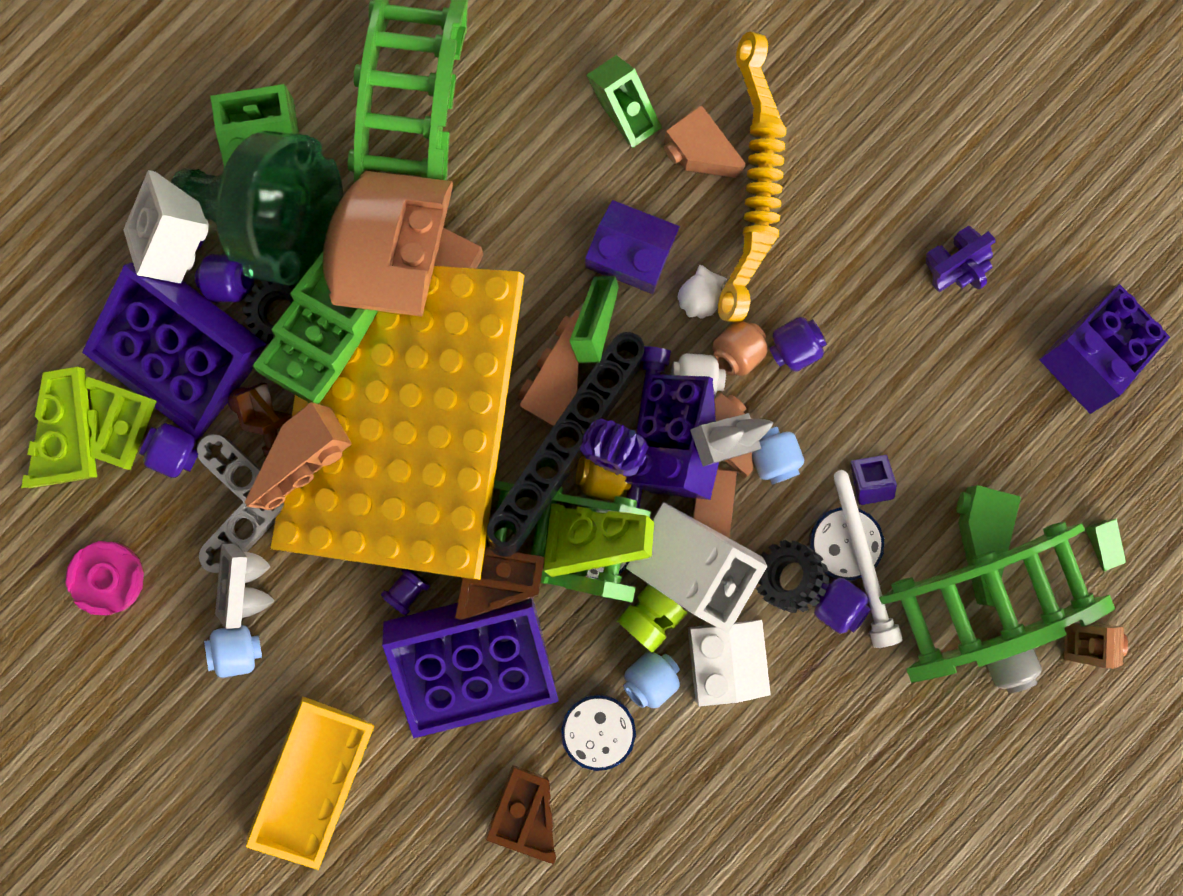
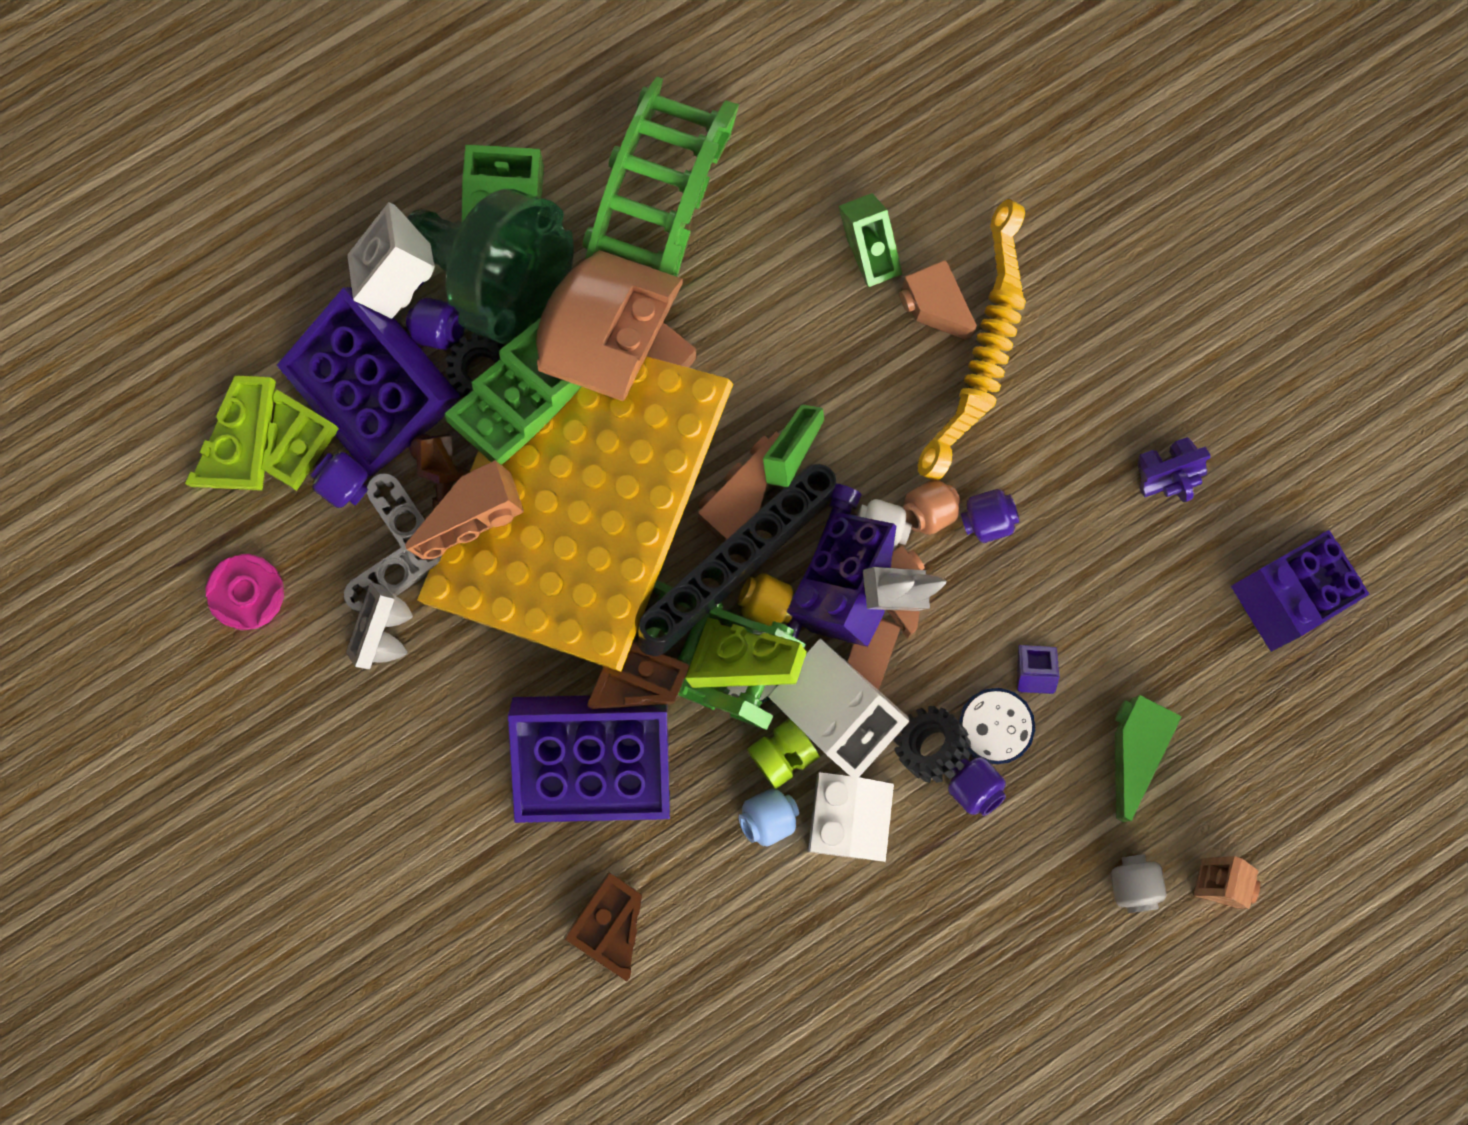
camera: 10 degrees right, 5 degrees down
(232, 651) = (355, 692): light blue head -> none
(309, 784) = (400, 843): yellow slope -> none
(405, 591) = (541, 671): dark purple bush -> none
(598, 732) = (702, 859): white tile -> none
(614, 447) = (783, 572): dark purple gear -> none
(631, 246) = (845, 383): dark purple slope -> none
(701, 293) = (905, 444): white animal -> none
(778, 456) = (945, 622): light blue head -> none
(884, 631) = (1014, 820): white piece -> none
(1014, 636) = (1143, 851): bright green fence -> none
(1107, 543) = (1261, 787): piece -> none

